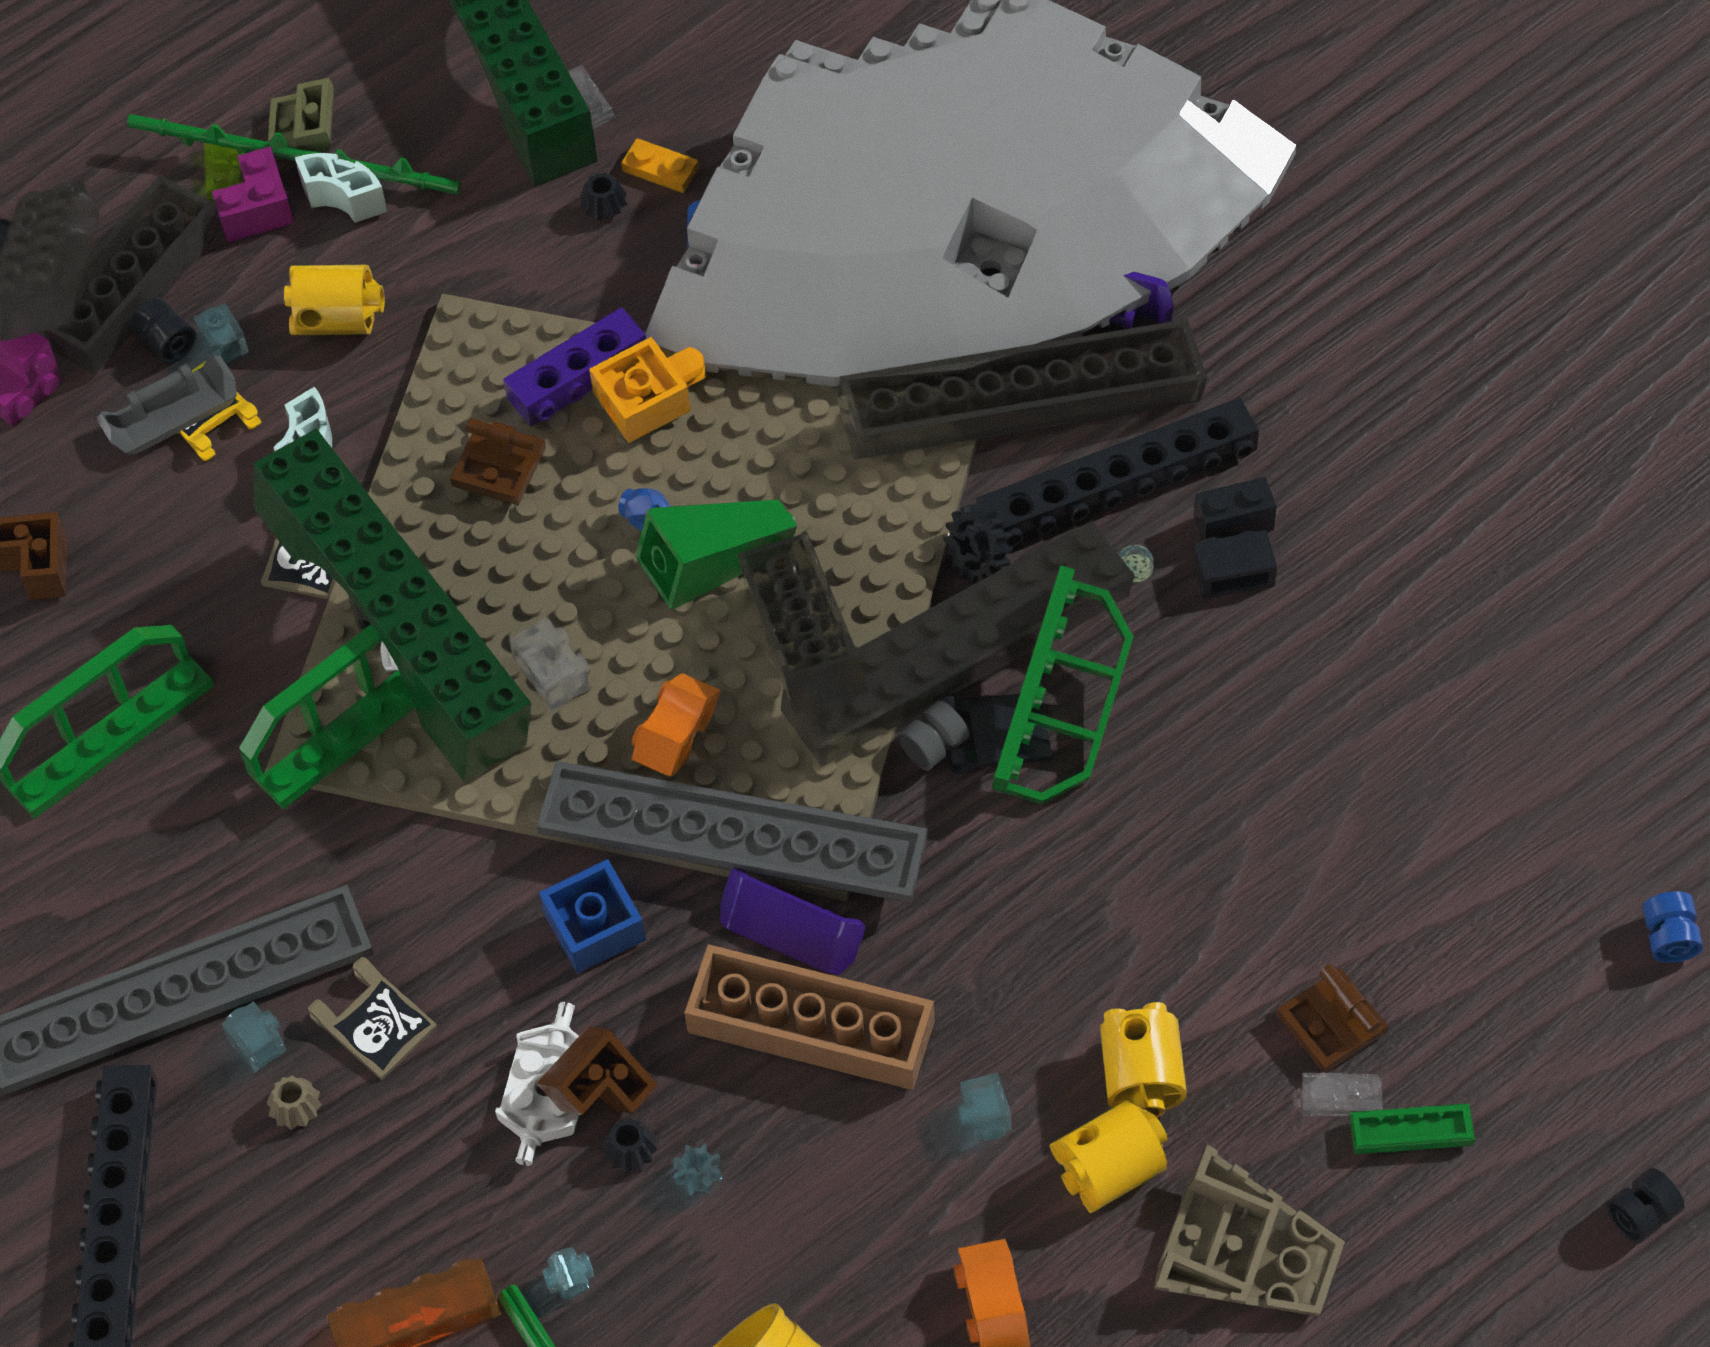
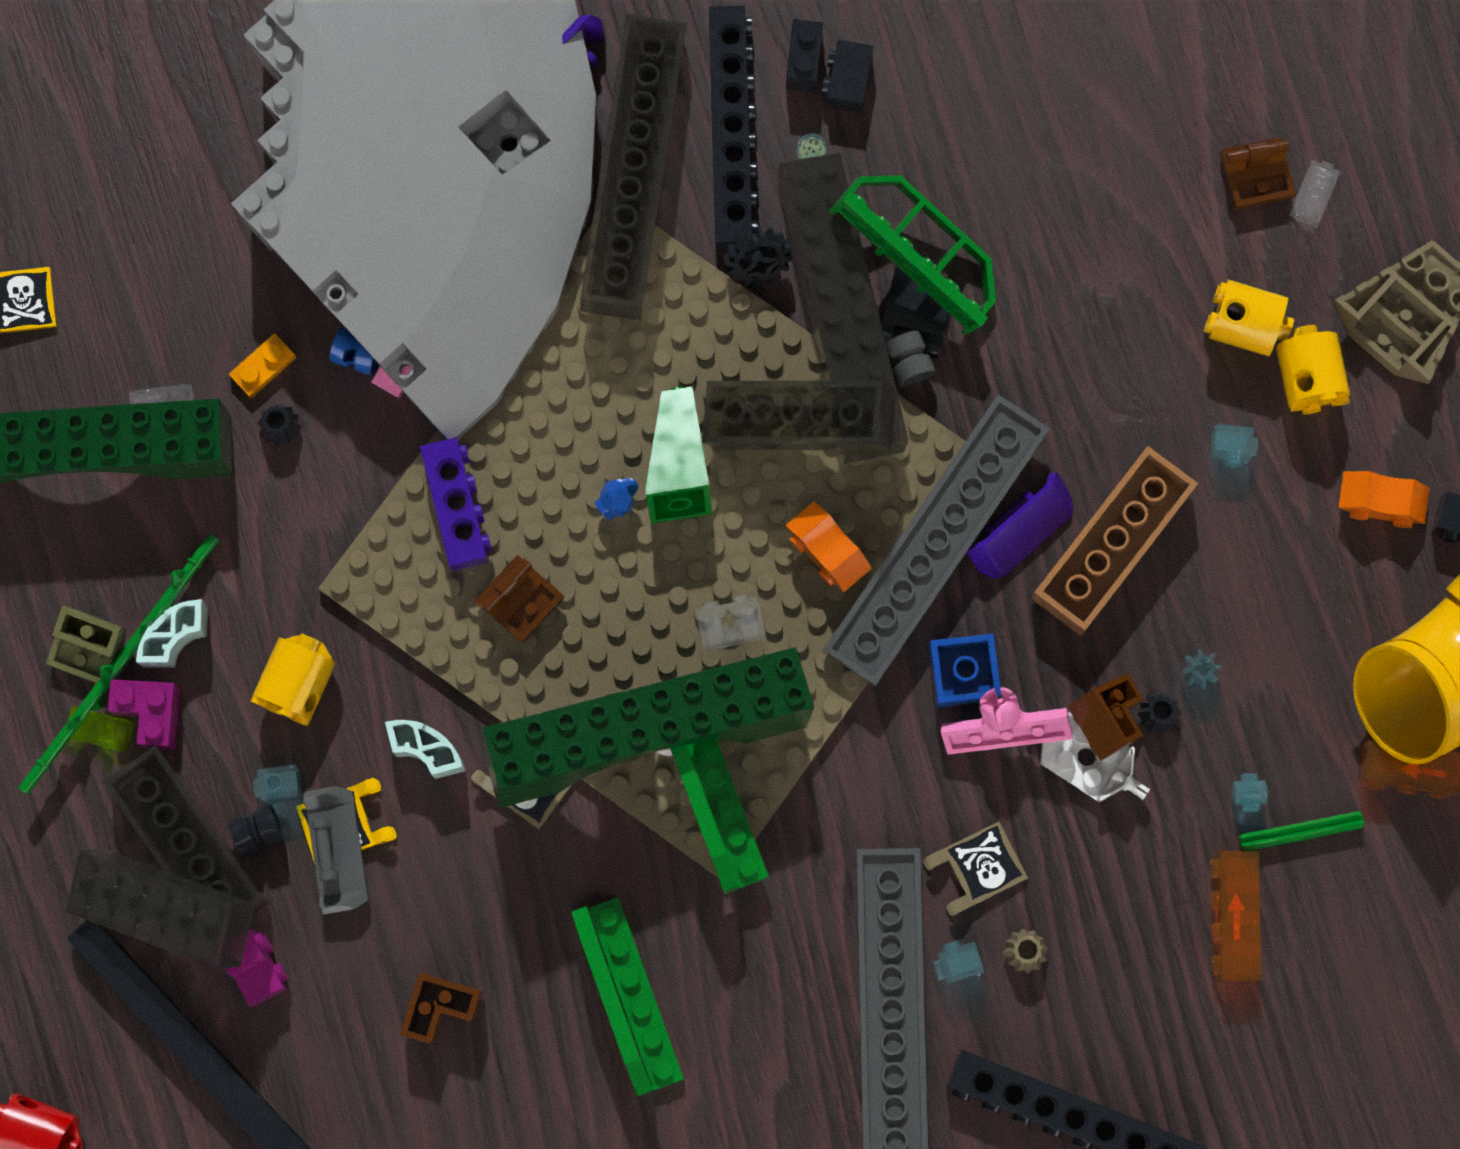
camera: 70 degrees left, 20 degrees up
(538, 971) = (1005, 726): none -> bright pink plate
(645, 387) = (504, 454): light orange brick -> none
(1411, 1128) = (1362, 156): green plate -> none

